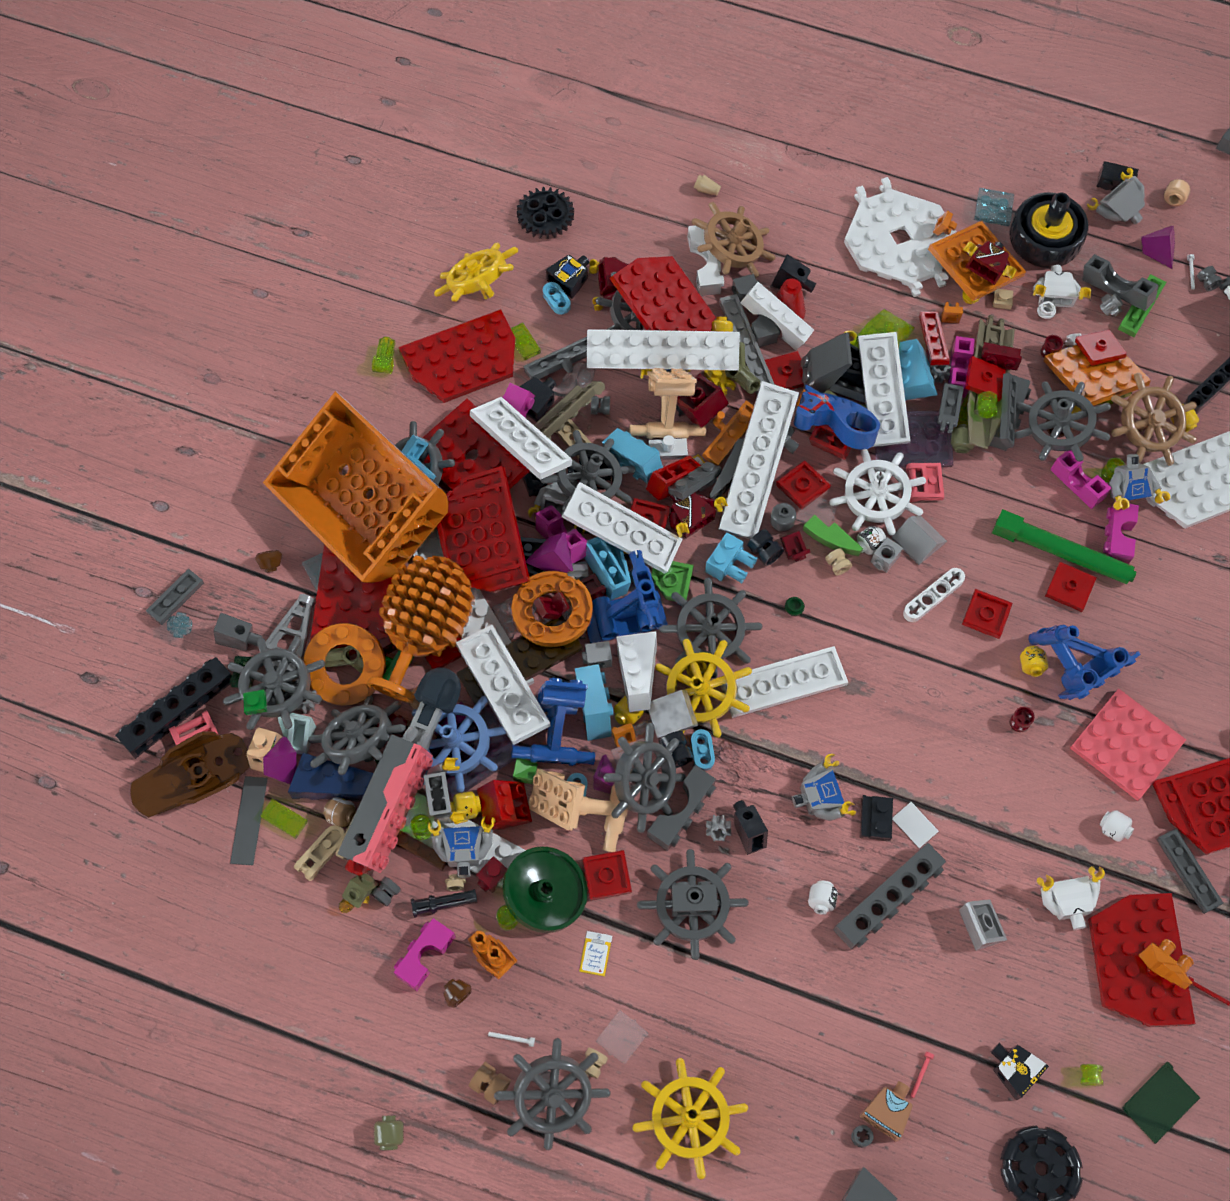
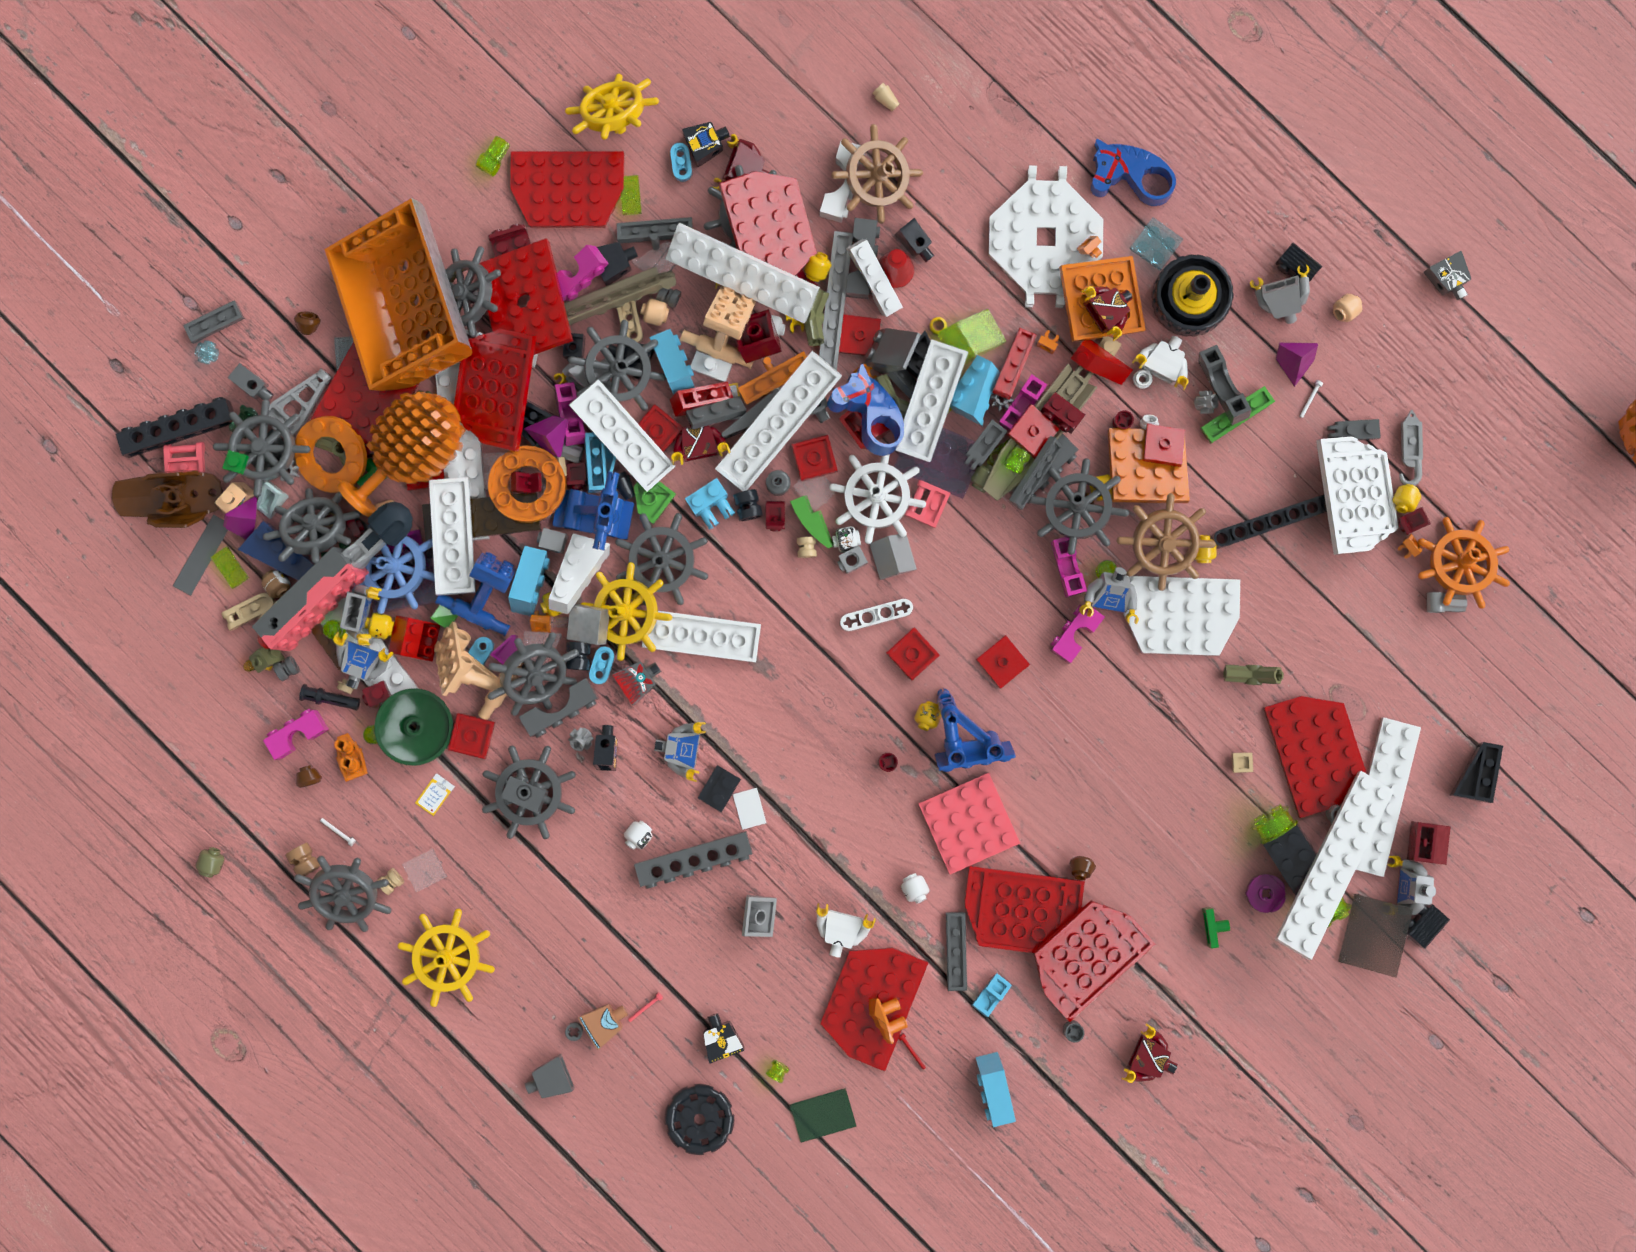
camera: 30 degrees right, 20 degrees up
(413, 450) = (461, 286): medium azure bracket -> none
(430, 416) = (509, 239): none -> dark red bracket
(521, 438) = (567, 309): white plate -> none
(545, 212) = (715, 44): black gear -> none
(595, 422) = (655, 312): none -> light nougat head
(743, 749) = (637, 680): none -> torso
(794, 606) = (747, 570): dark green plate -> none
(941, 159) = (1129, 163): none -> blue animal
(1006, 309) = (1101, 362): none -> red slope
(1013, 527) = (1015, 624): green brick -> none
(1209, 278) = (1320, 416): dark grey wheel -> none

